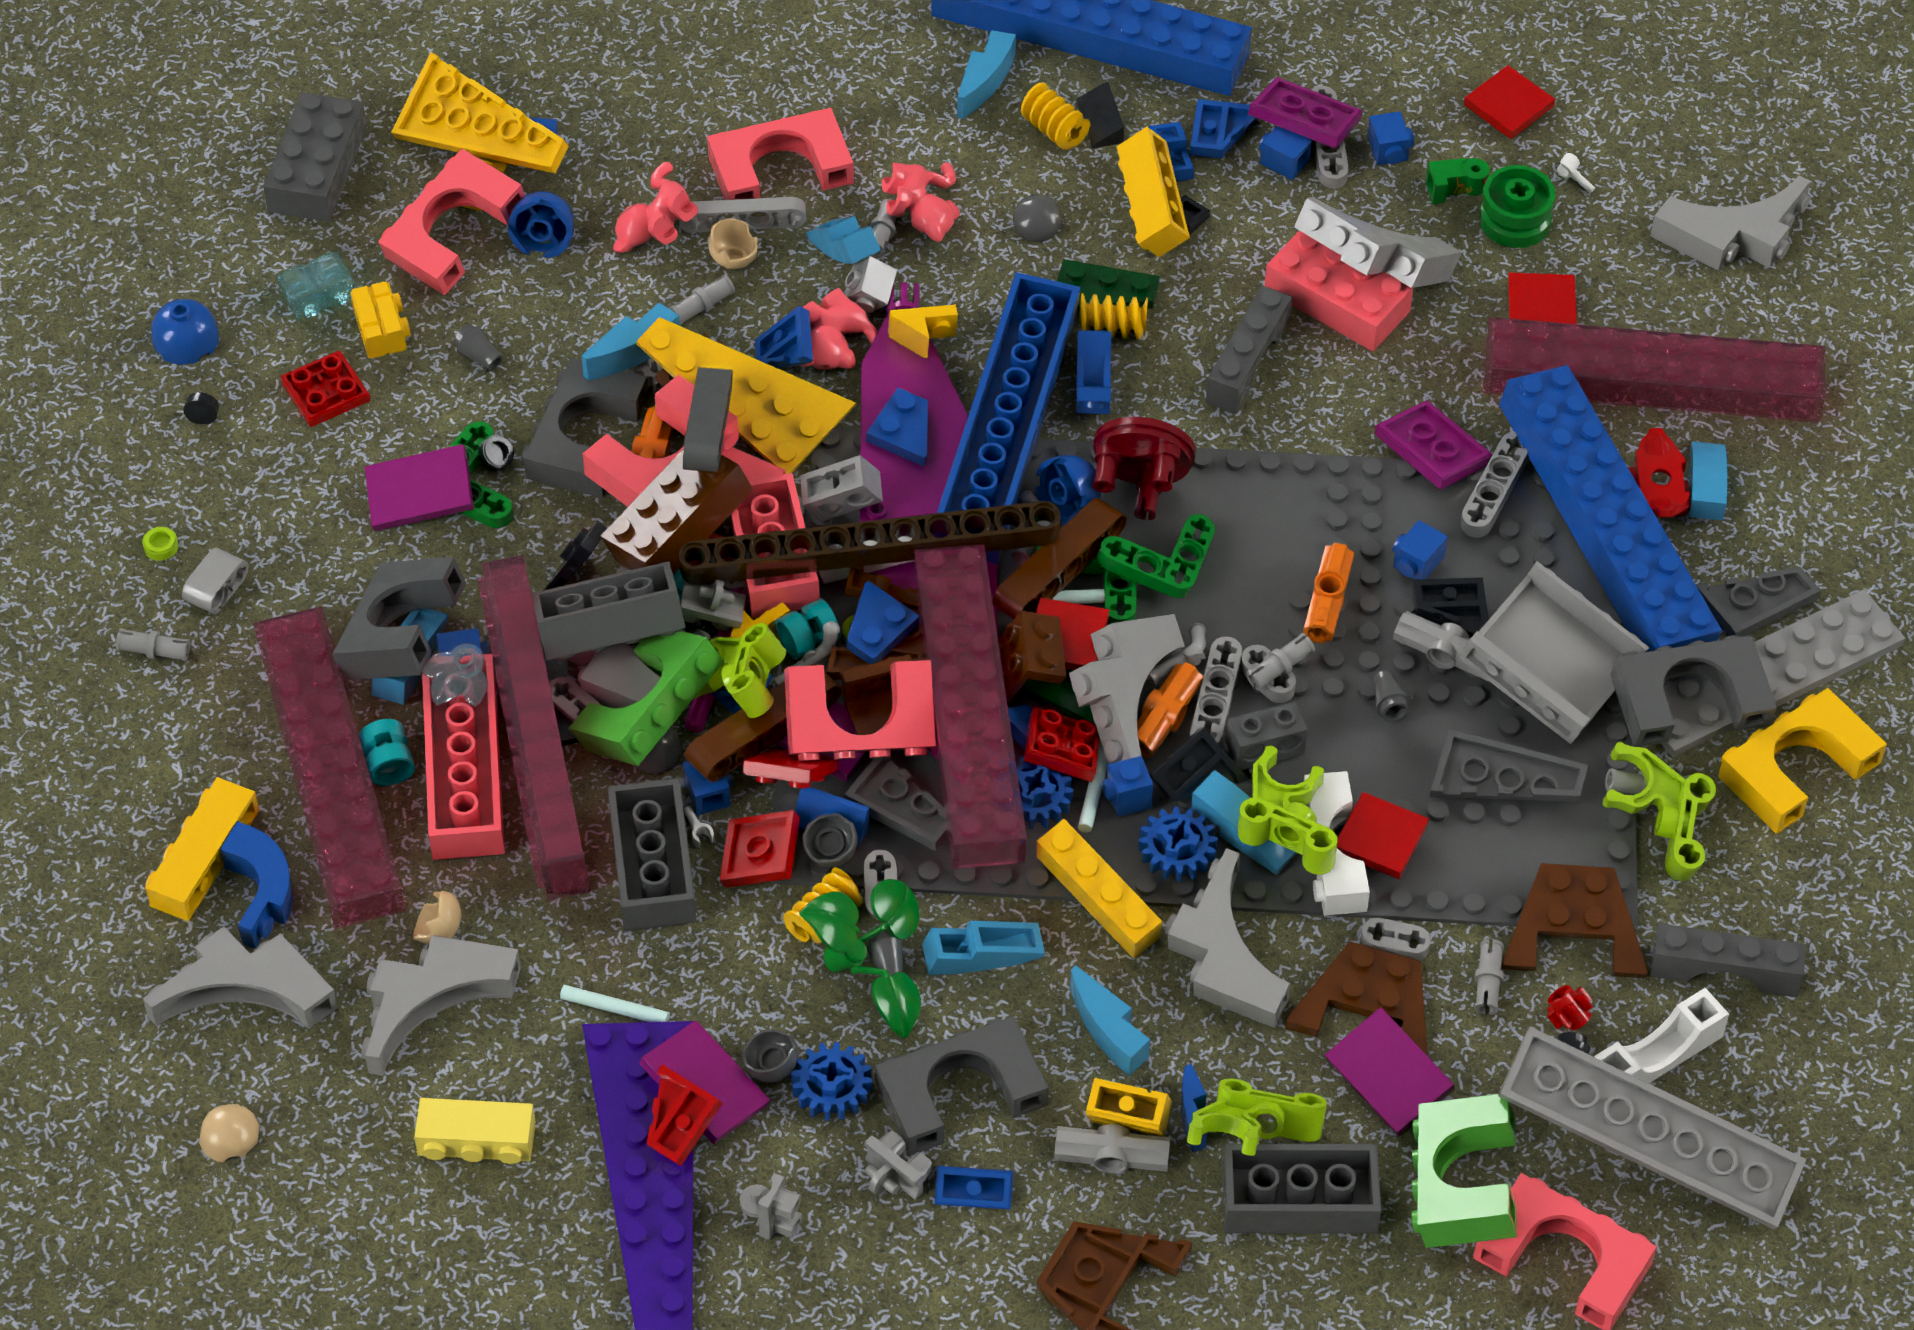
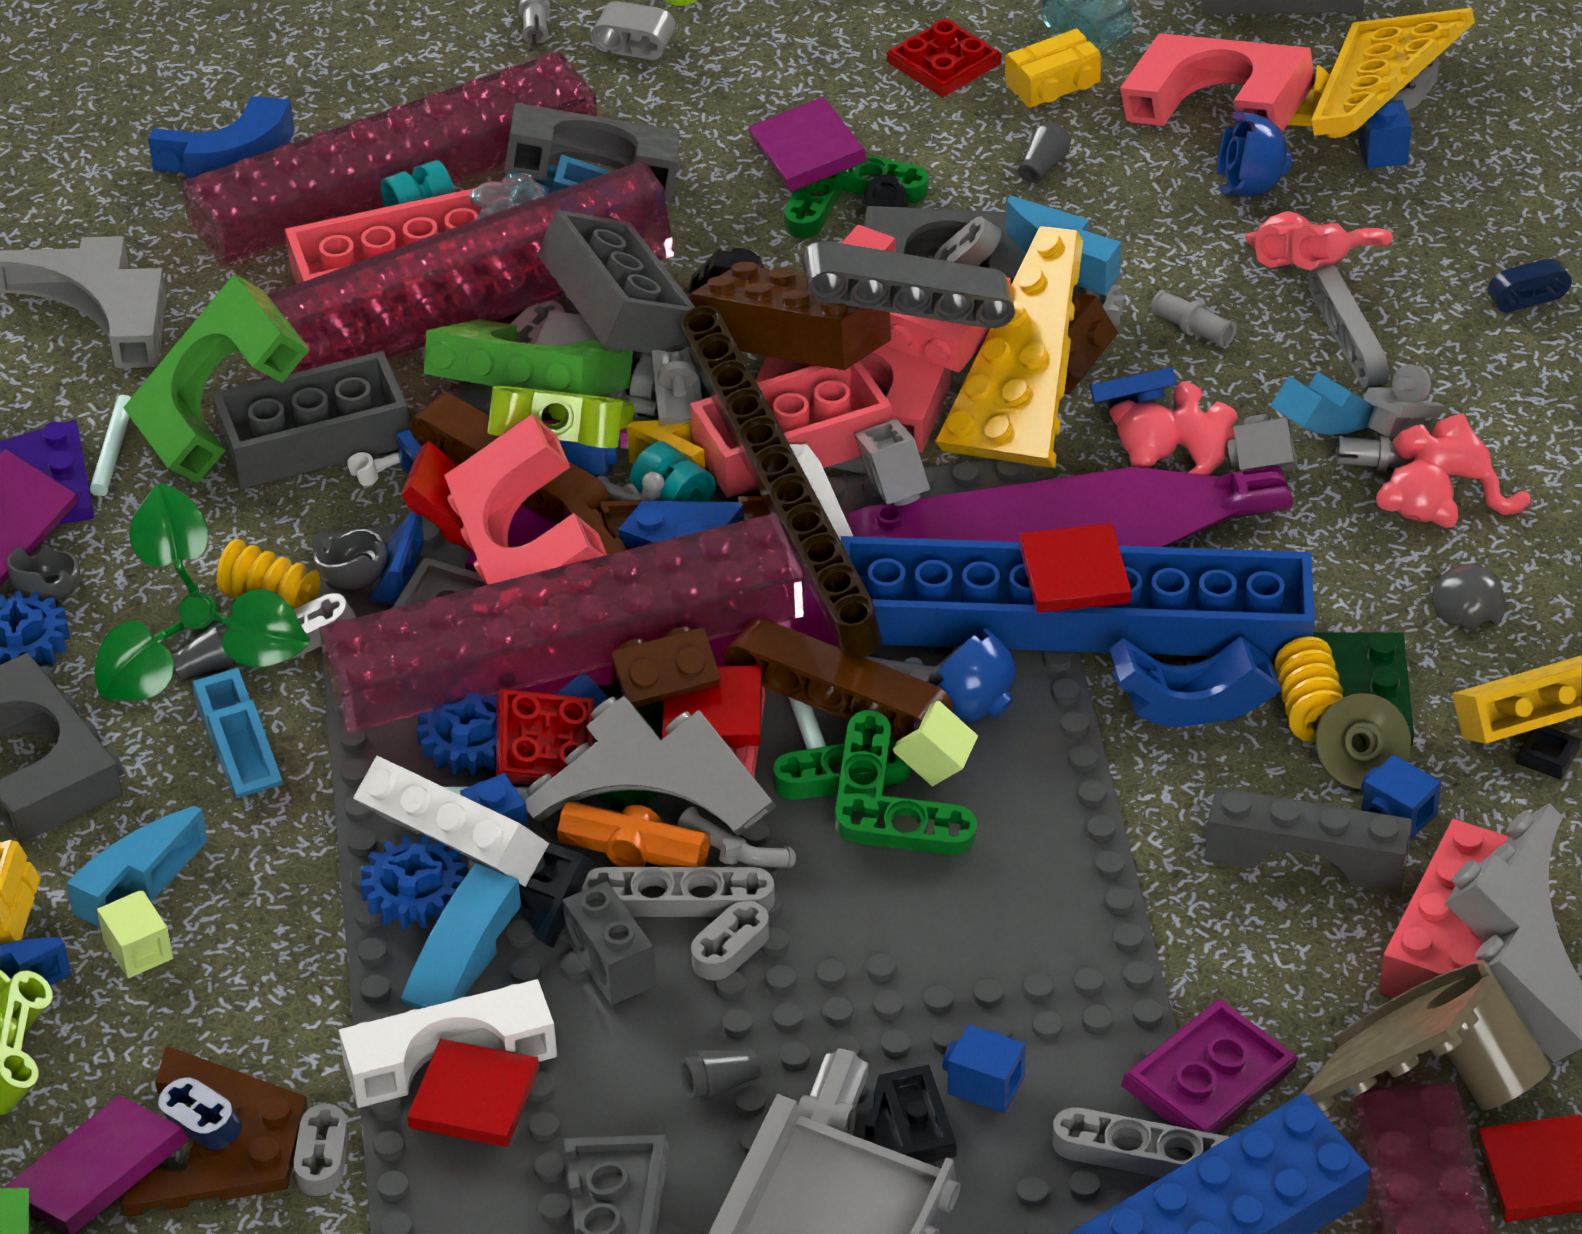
camera: 80 degrees right, 10 degrees down
(195, 857) = (223, 87): yellow brick -> none
(228, 973) = (107, 166): light grey arch -> none
(438, 918) = (195, 277): tan hair -> none
(579, 858) = (170, 398): none -> bright green arch
(587, 407) = (972, 243): none -> light grey beam
(732, 244) = (1288, 320): tan hair -> none
(733, 105) = (1529, 285): none -> dark blue beam
(759, 848) = (339, 510): red plate -> none
(808, 134) = (1449, 299): coral arch -> none
(853, 198) = (1403, 403): none -> light grey hips
(902, 427) = (1035, 507): blue wing -> none
(917, 325) = (1204, 497): yellow slope -> none
(1012, 394) = (1074, 568): none -> red tile
(1099, 888) = (318, 819): yellow brick -> none
(1137, 515) = (938, 745): none -> yellowish green panel
(1143, 454) = (1019, 724): dark red piece -> none
(1146, 803) = (451, 820): none -> white arch
(1169, 300) = (1376, 721): none -> olive dish
(1177, 1027) = (135, 933): none -> yellowish green panel
(1219, 295) = (1401, 792): none -> blue brick
(1224, 965) = (281, 941): light grey arch -> none
(1280, 661) = (730, 931): light grey pin -> none
(1281, 815) = (443, 944): lime piece -> none
(1328, 593) = (879, 976): orange piece -> none
(1362, 990) = (206, 1106): none -> dark blue beam
(1458, 327) = (1452, 1015): none -> dark tan piece

